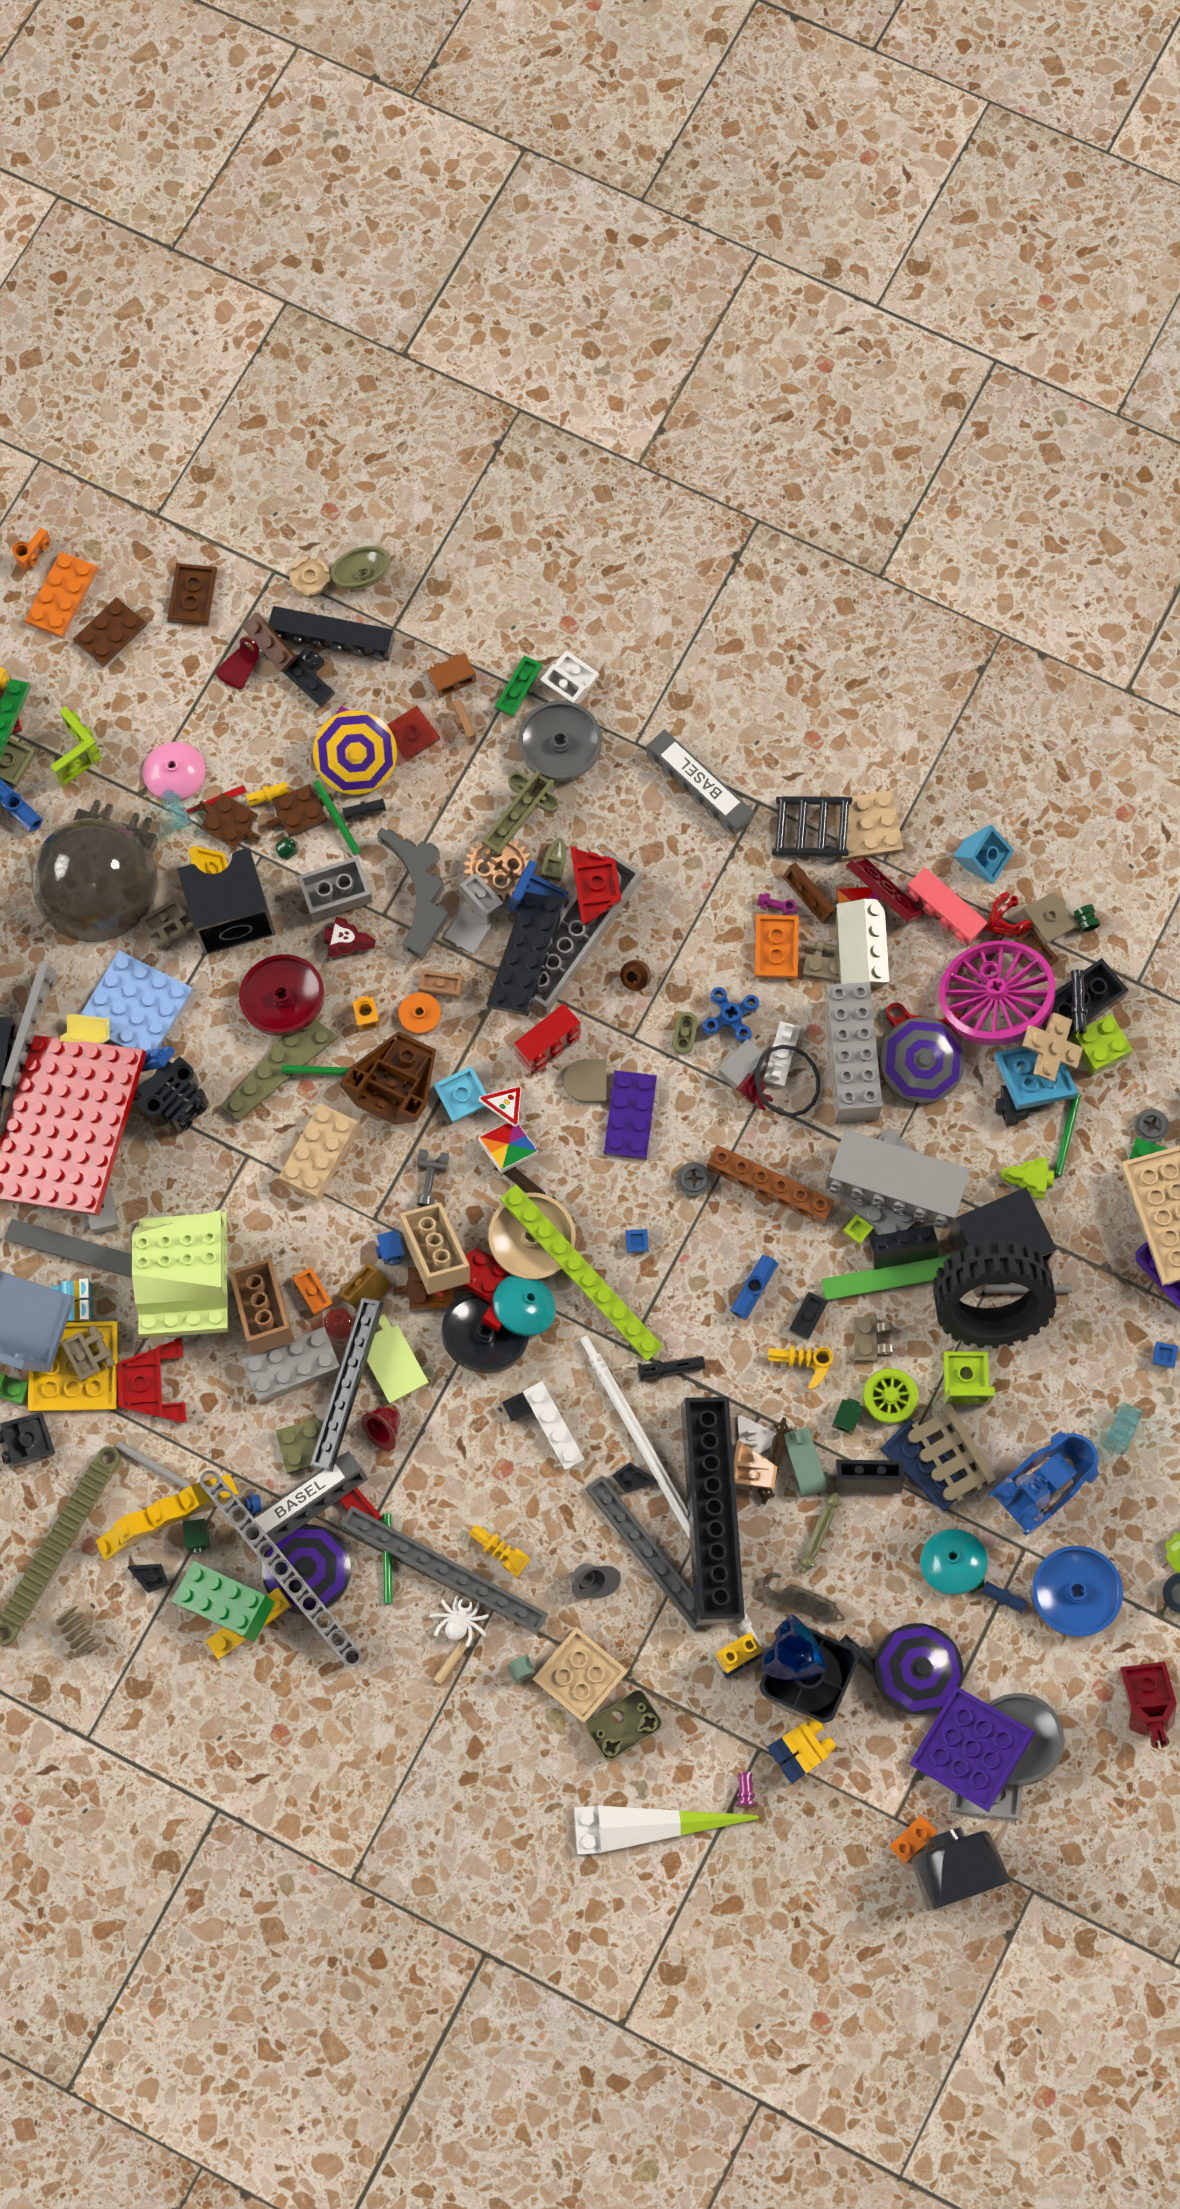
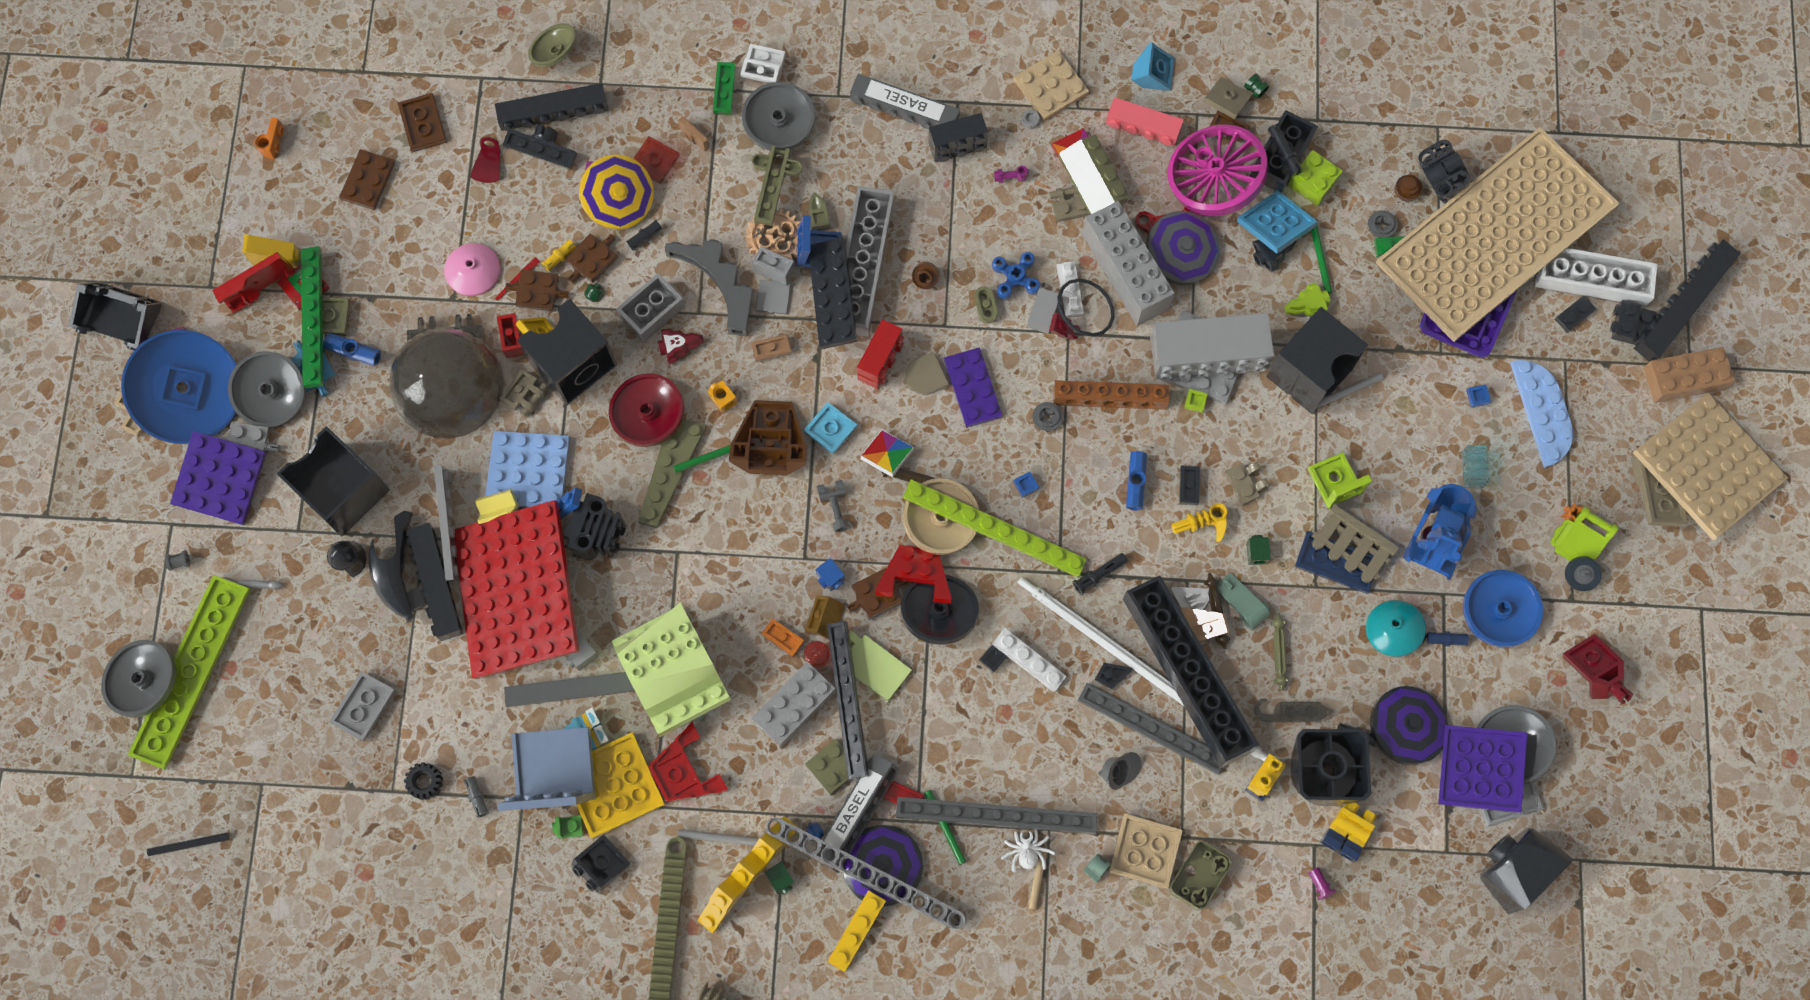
camera: 25 degrees left, 0 degrees up
(61, 594) = (312, 166): orange plate -> none
(80, 757) = (390, 287): lime bracket -> none
(82, 1357) = (616, 773): dark tan plate -> none
(150, 1576) = (756, 929): black piece -> none
(173, 803) = (490, 298): clear light blue leg -> none
(177, 856) = (509, 334): none -> red brick
(223, 1601) = (829, 922): brick -> none
(262, 1306) = (749, 667): medium nougat brick -> none
(269, 642) = (505, 133): reddish brown plate -> none
(310, 577) = (513, 70): tan tile -> none
(319, 1152) = (735, 523): tan brick -> none
(337, 818) = (624, 250): green bar -> none
(382, 1426) = (891, 722): dark red piece -> none
(422, 1023) = (767, 387): orange plate -> none
(434, 1248) = (868, 558): tan brick -> none
(451, 675) = (665, 100): dark orange brick -> none
(504, 1104) = (869, 421): piece -> none
(514, 1560) = (1048, 782): yellow piece -> none
(518, 1312) = (957, 580): teal dish -> none
(595, 883) = (861, 214): red wing -> none
(614, 1828) = (1232, 961): white plate -> none
(737, 842) = (958, 137): none -> black brick
(776, 946) = (1026, 207): orange plate -> none
(793, 1653) = (1316, 754): clear blue brick -> none
(803, 802) = (1010, 79): black bar -> none
(809, 893) = (1031, 155): reddish brown plate -> none
(868, 1476) = (1298, 590): black brick -> none
(881, 1279) = (1236, 429): bright green tile -> none
(885, 889) = (1091, 126): dark red tile -> none
(890, 1397) = (1283, 520): lime wheel -> none
(903, 1247) = (1238, 398): black brick -> none
(913, 1838) = (1470, 861): orange plate -> none
(990, 1265) = (1317, 384): black tyre -> none
(996, 924) = (1188, 114): red helmet -> none
(1052, 1047) = (1282, 193): tan plate -> none

